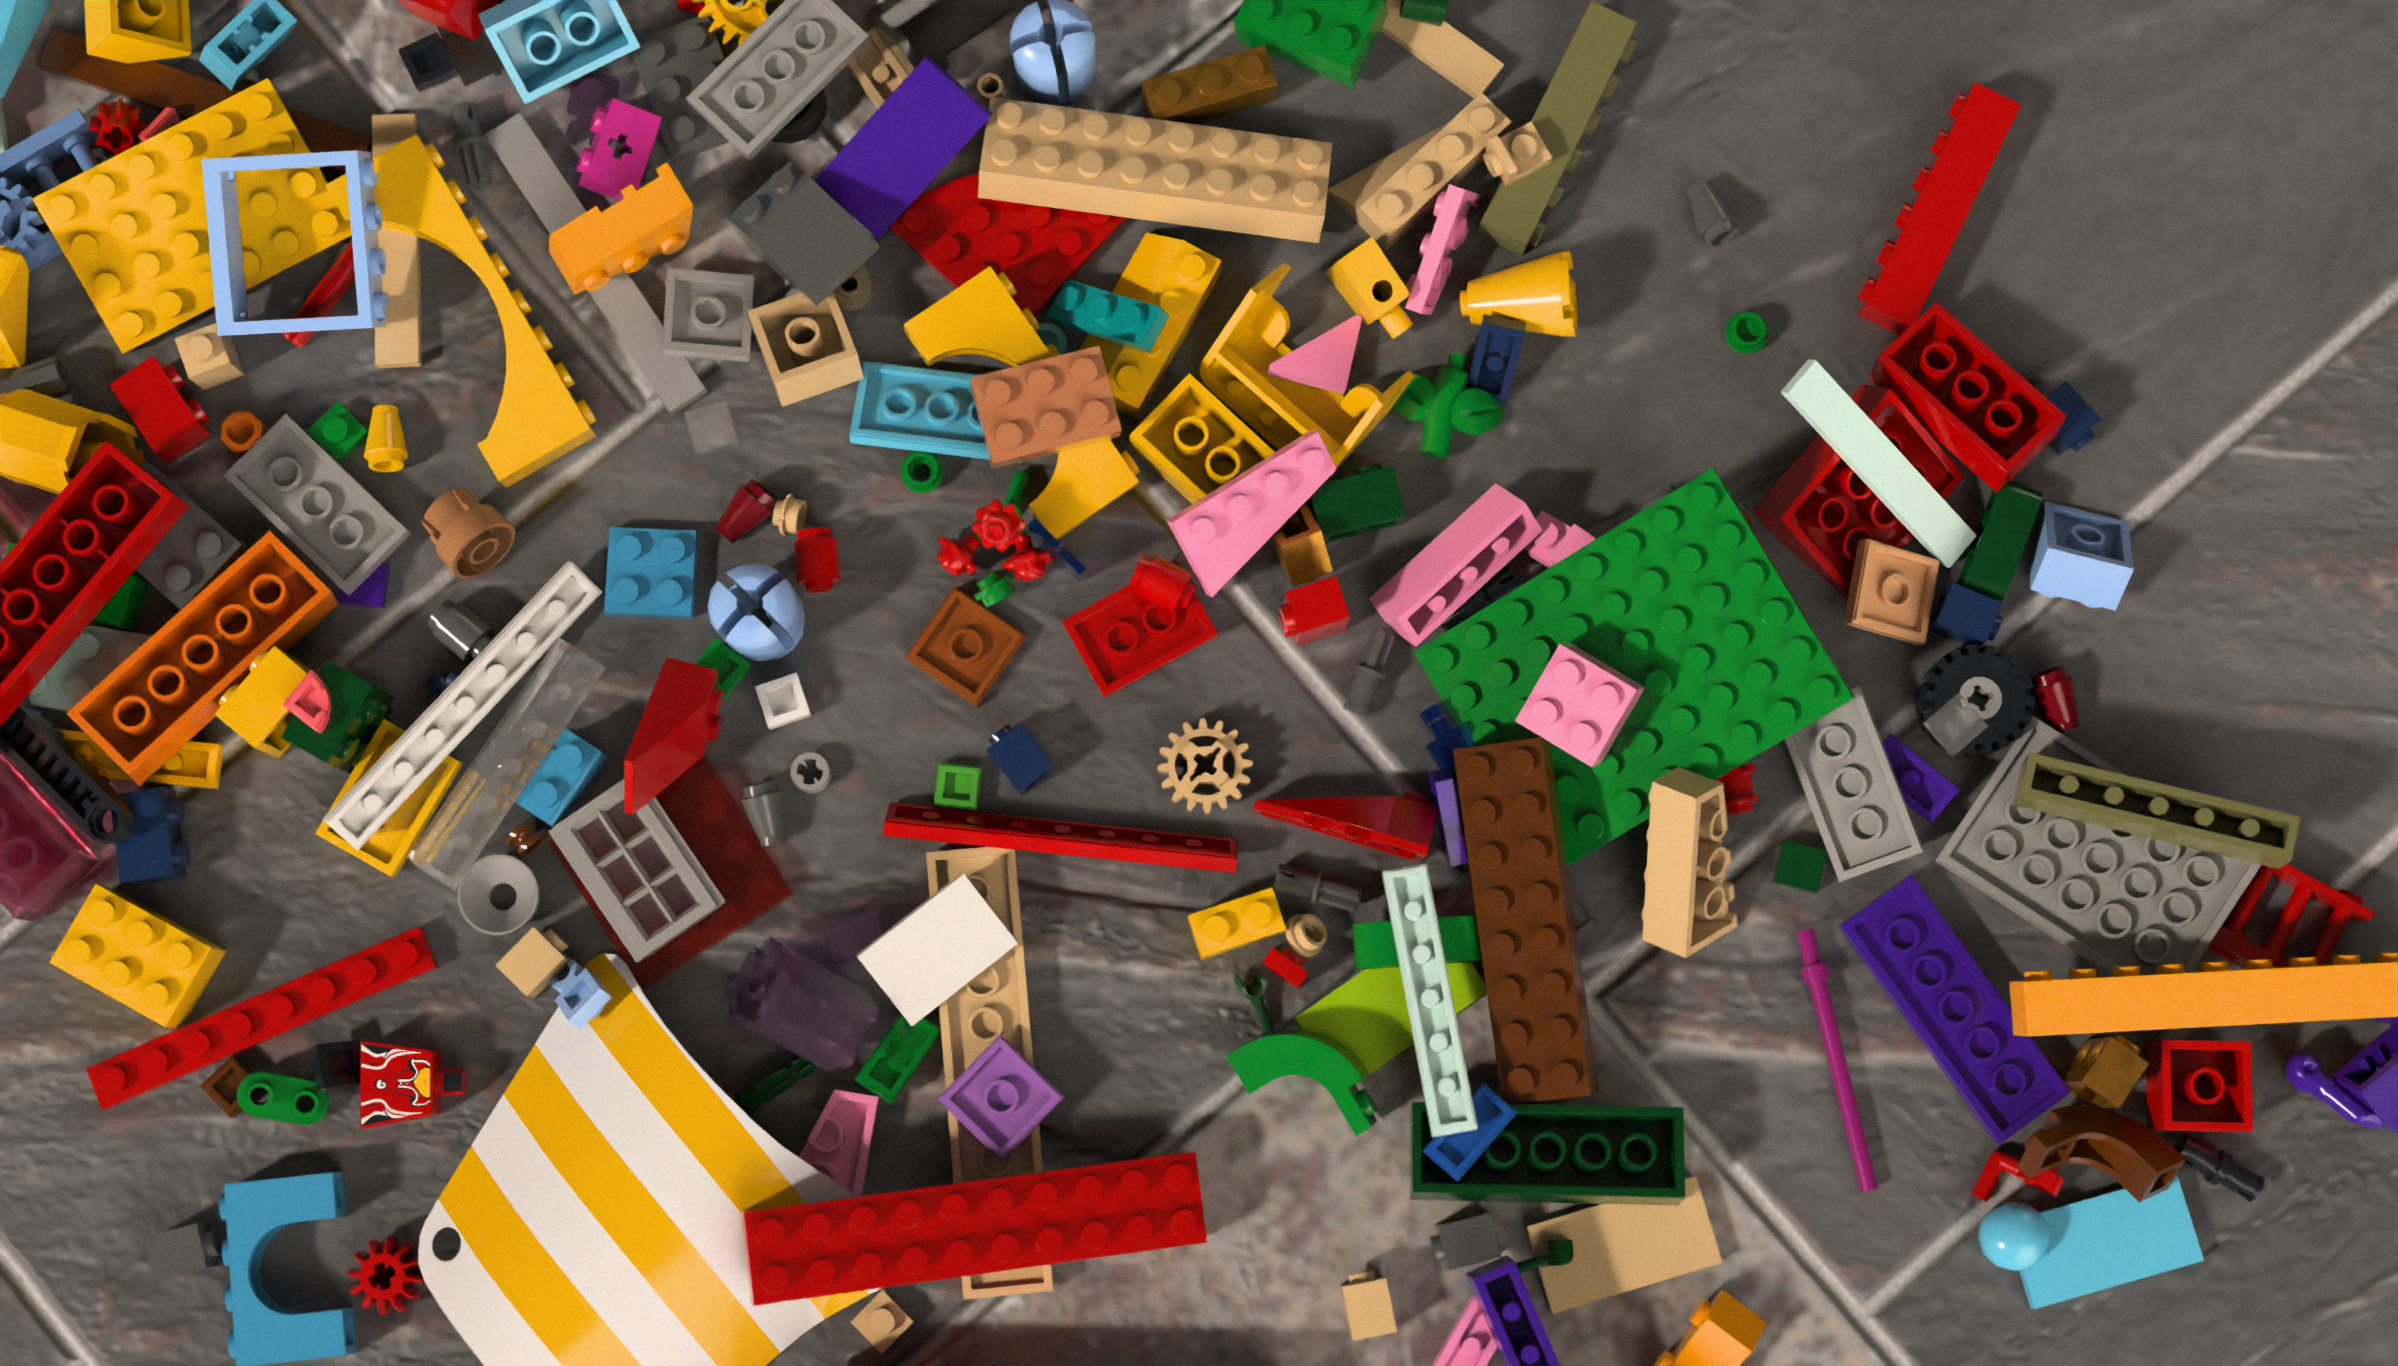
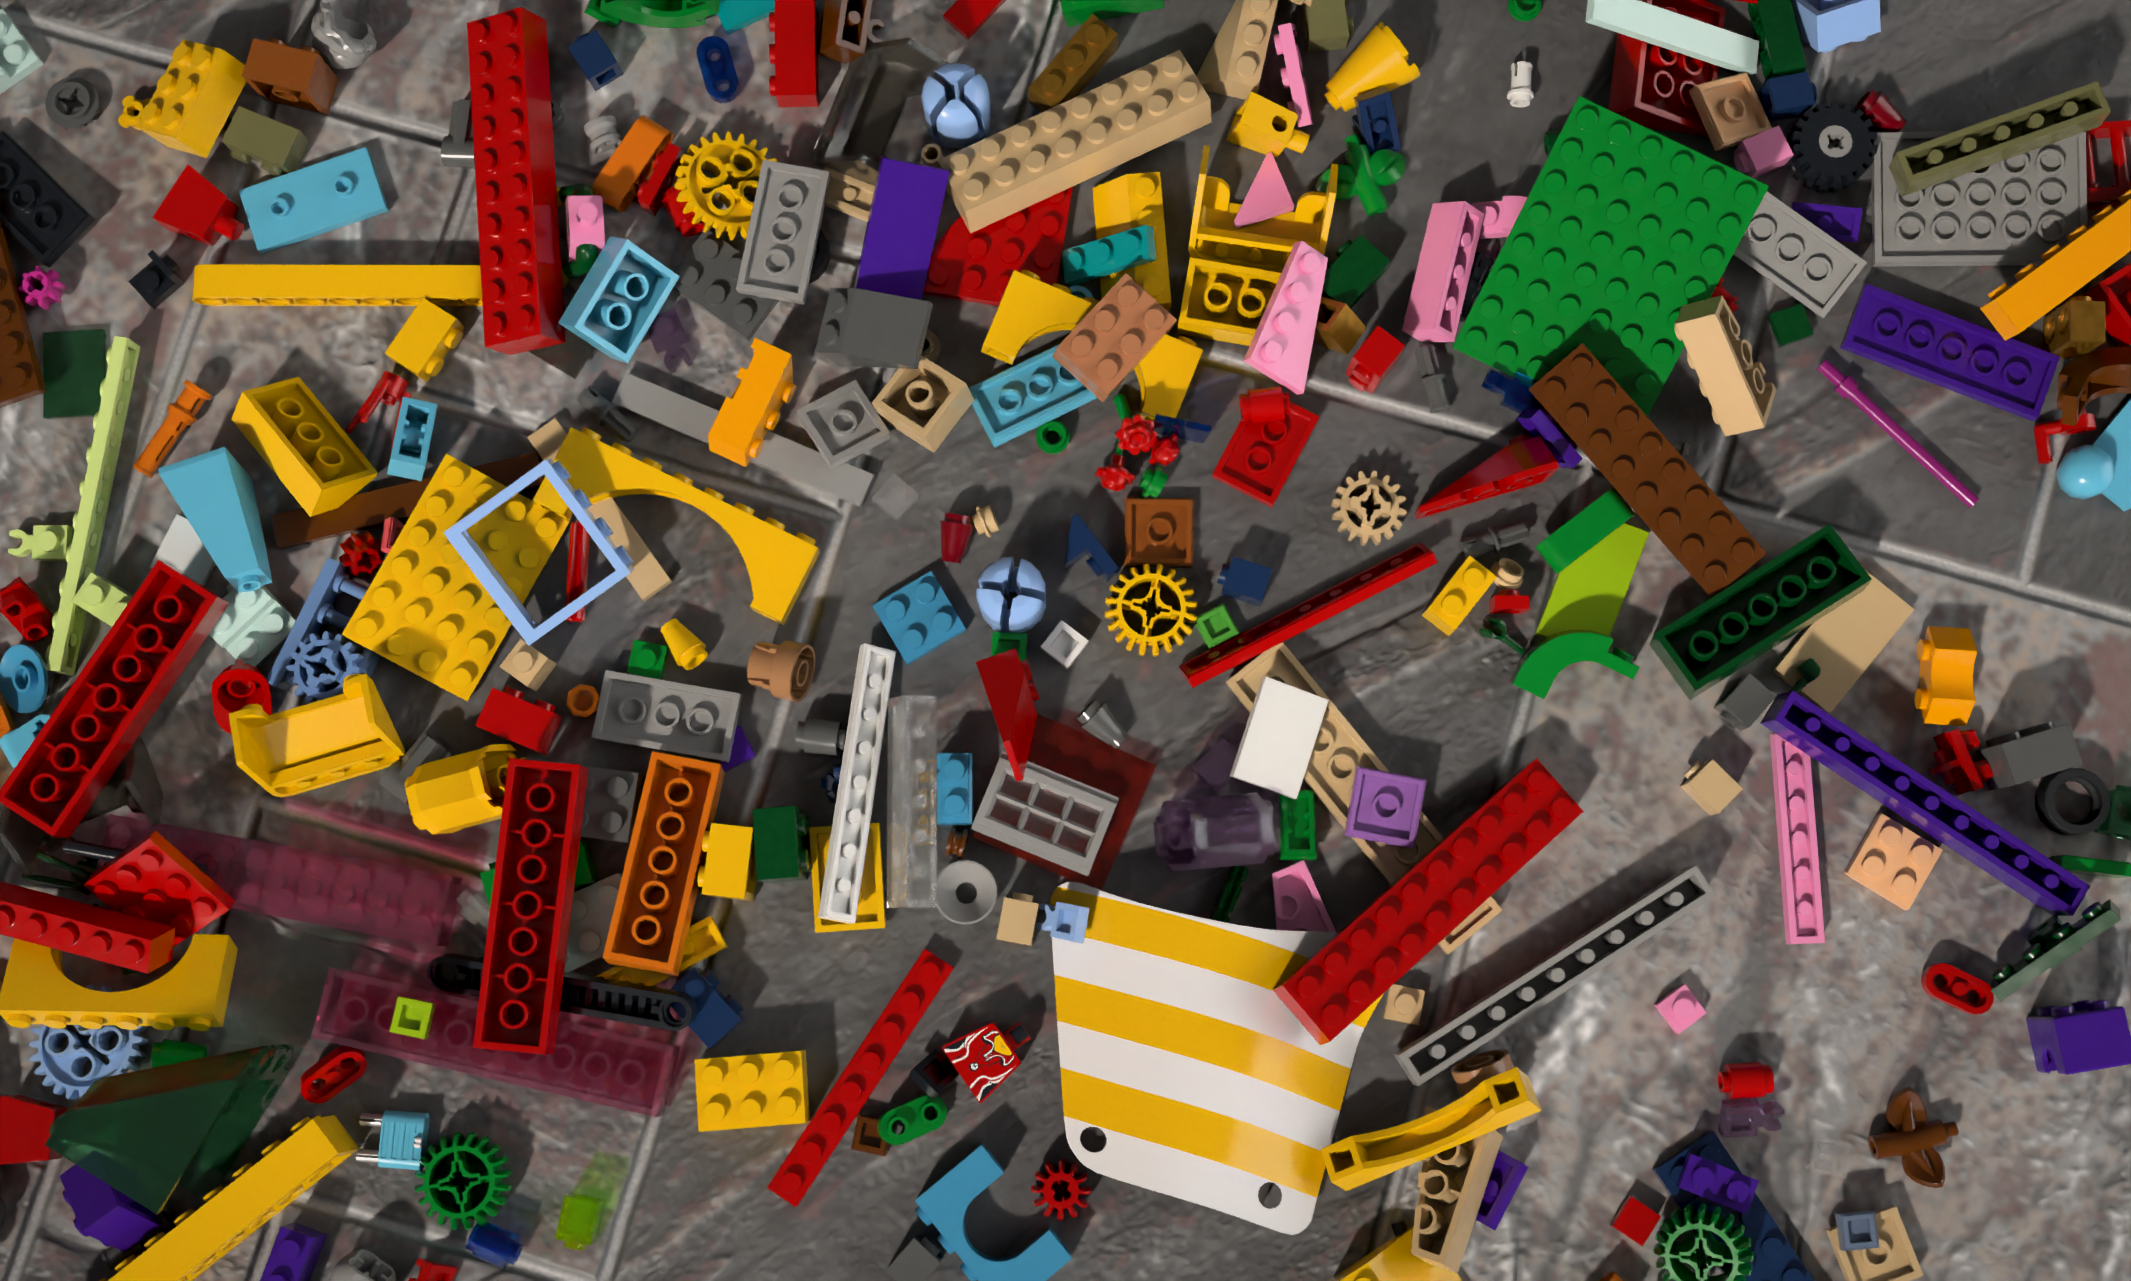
camera: 25 degrees left, 0 degrees up
(311, 702) = (762, 843): coral tile -> none
(427, 62) = (540, 378): black plate -> none
(634, 132) = (715, 338): dark pink brick -> none
(799, 779) = (1109, 689): light grey bush -> none
(816, 559) = (1024, 537): red brick -> none
(875, 605) = (1083, 543): none -> dark blue slope
(912, 709) = (1166, 612): none -> yellow gear
(1429, 1001) = (1623, 560): light aqua tile -> none
(1460, 1151) = (1706, 628): blue tile -> none
(1580, 704) = (1592, 306): bright pink brick -> none
(1676, 424) = (1520, 92): none -> white pin
(1894, 660) = (1762, 153): none -> bright pink brick
(1955, 724) = (1832, 167): clear tile -> none

